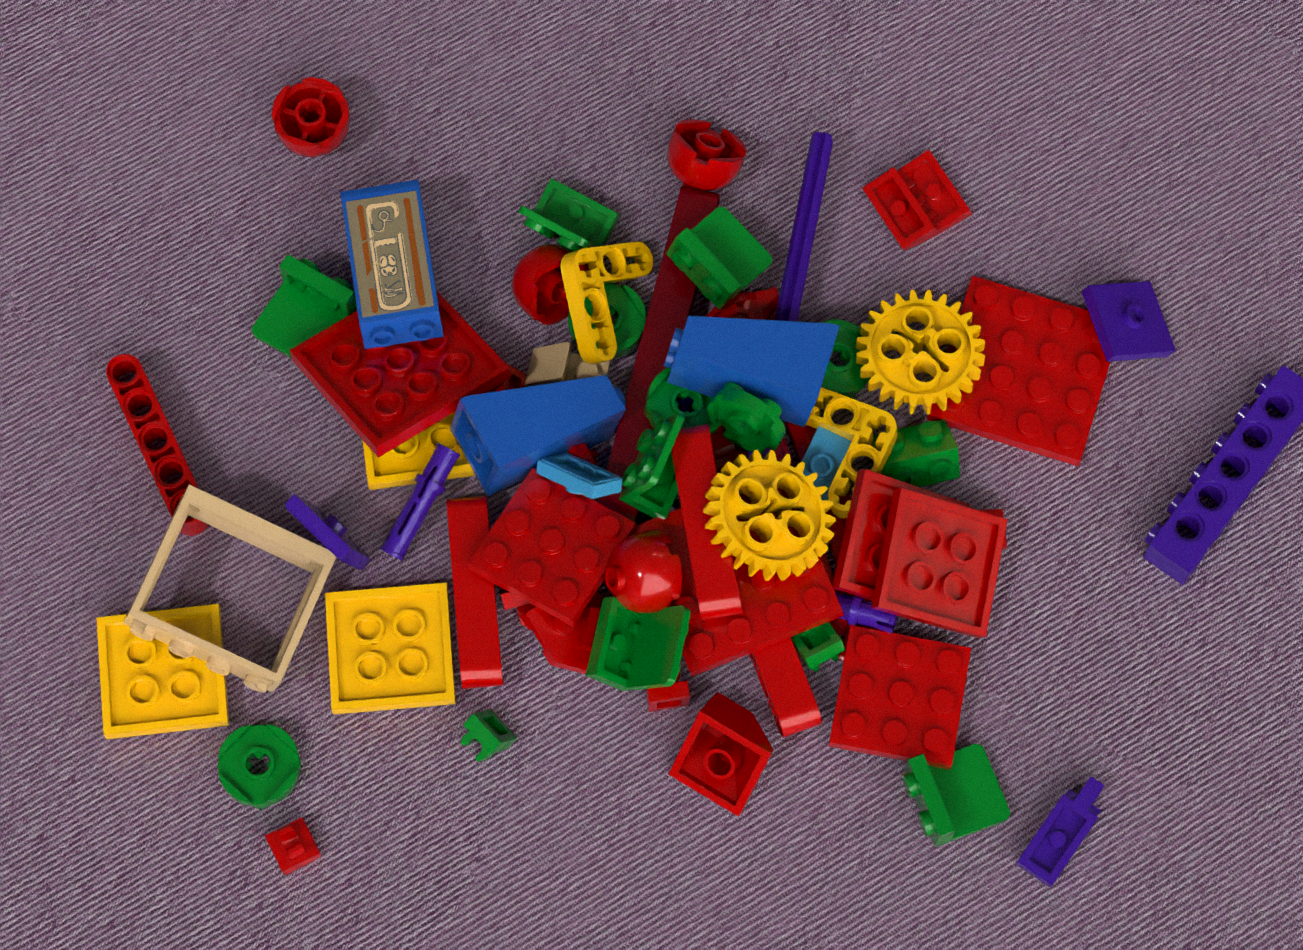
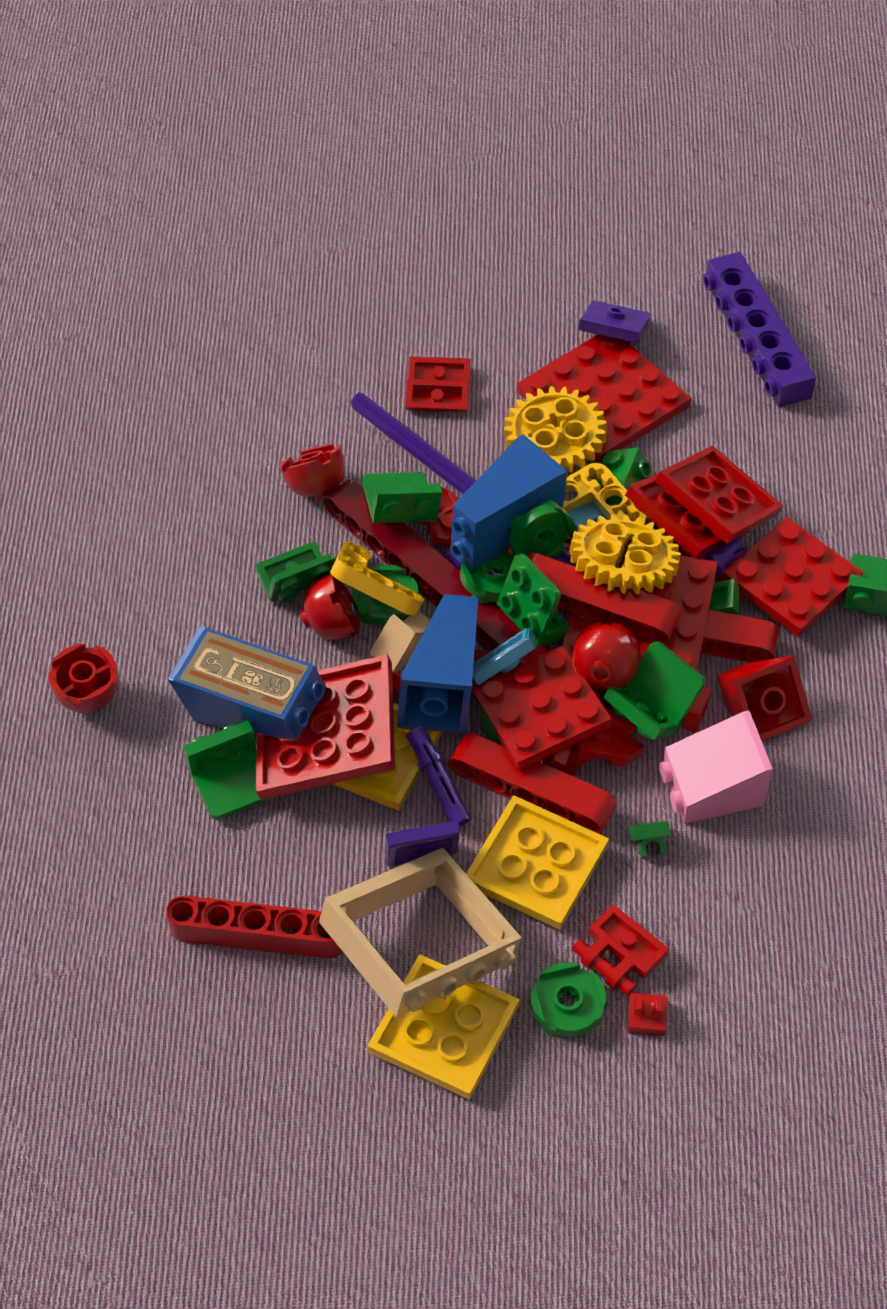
camera: 55 degrees left, 15 degrees down
(354, 783) = (625, 940): none -> red plate
(596, 756) = (717, 770): none -> bright pink slope

